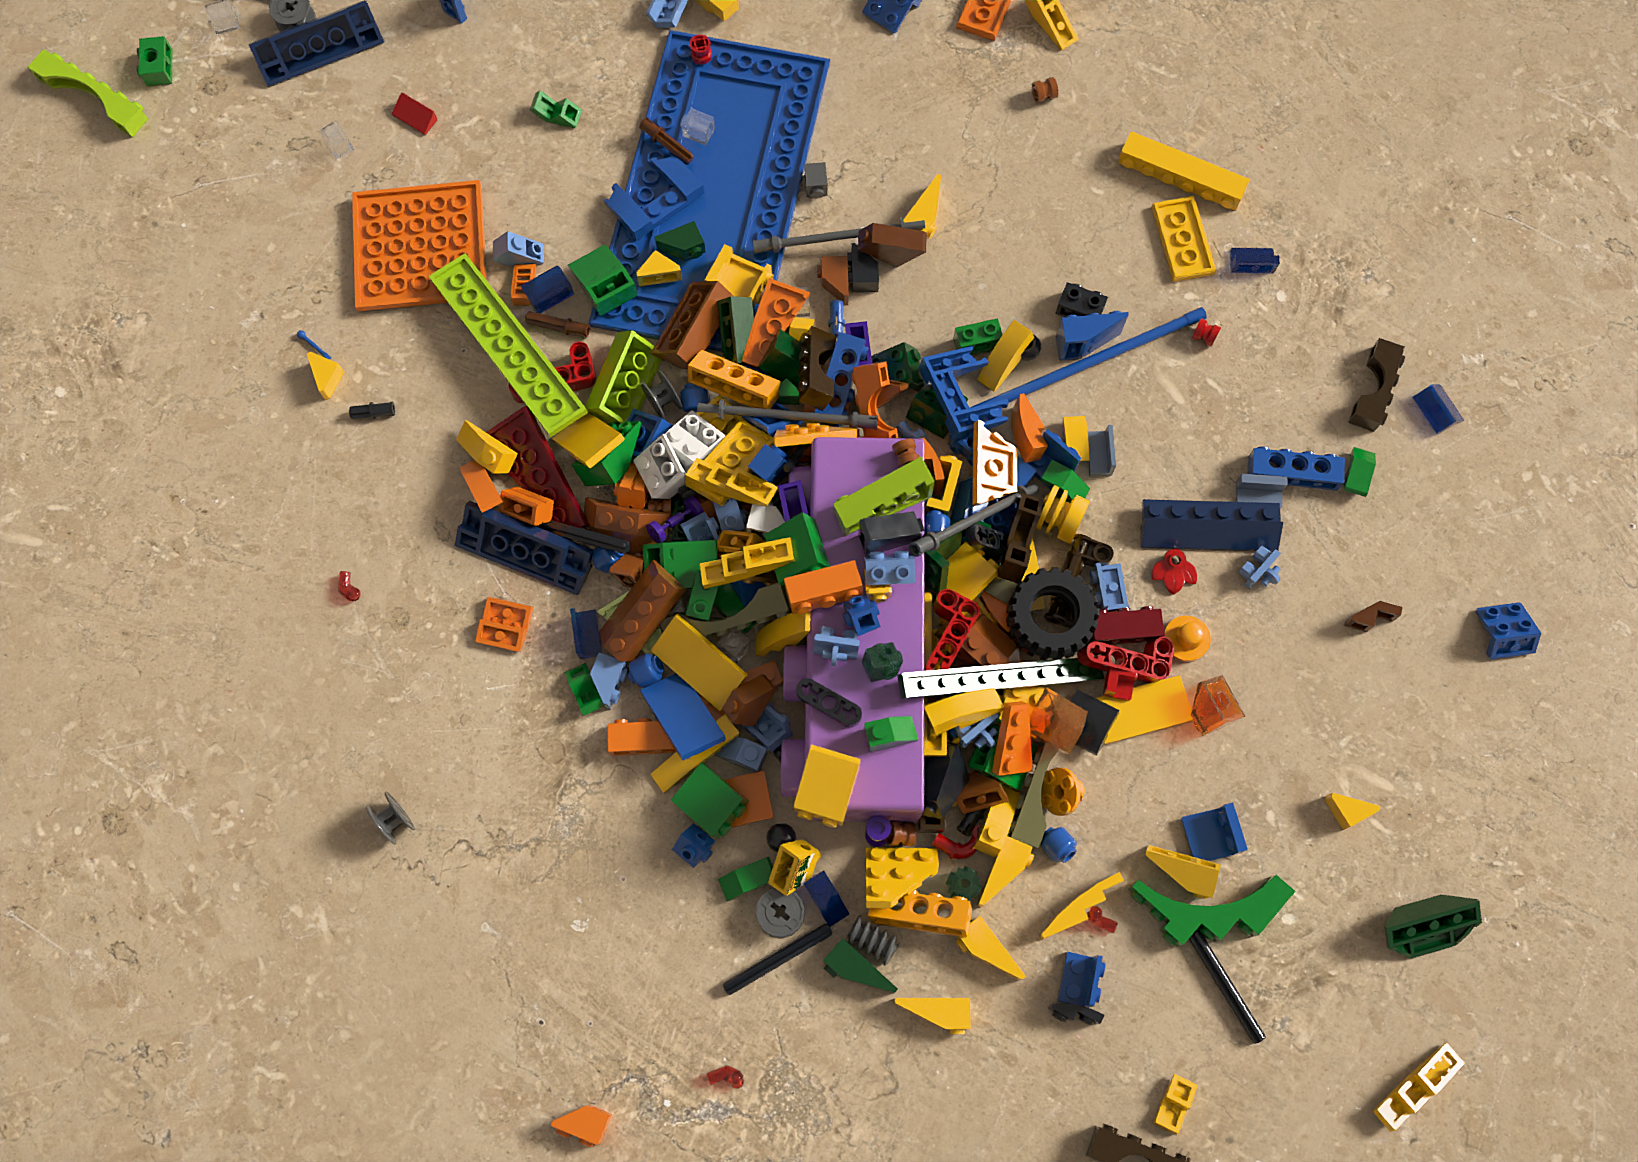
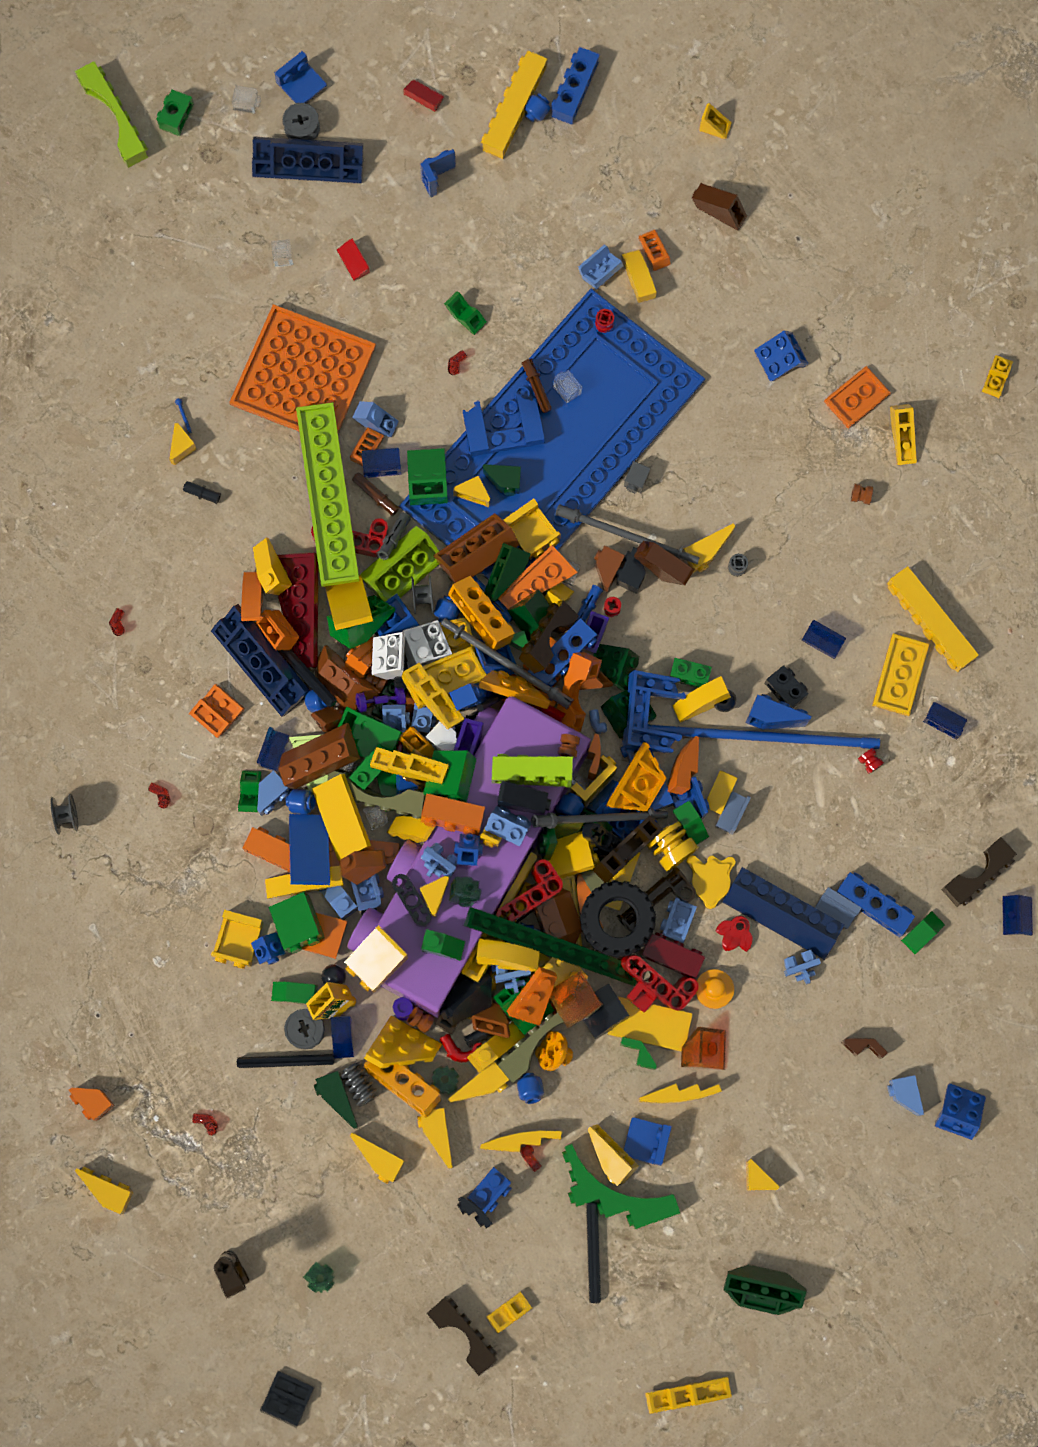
camera: 25 degrees right, 5 degrees up
(490, 741) = (162, 794): none -> clear red arm
(570, 160) = (454, 363): none -> clear red arm
(599, 358) = (391, 541): none -> dark grey pin
(652, 854) = (236, 938): none -> yellow panel
(849, 682) = (434, 893): none -> yellow slope
(857, 310) = (609, 601): none -> red bush
(964, 212) = (735, 567): none -> dark grey wheel
(1089, 240) = (823, 639): none -> clear blue panel
(1117, 529) = (711, 879): none -> yellow tile
(1157, 747) = (644, 1058): none -> green slope
(1211, 769) = (672, 1094): none -> yellow slope
(1445, 641) = (906, 1093): none -> medium blue slope

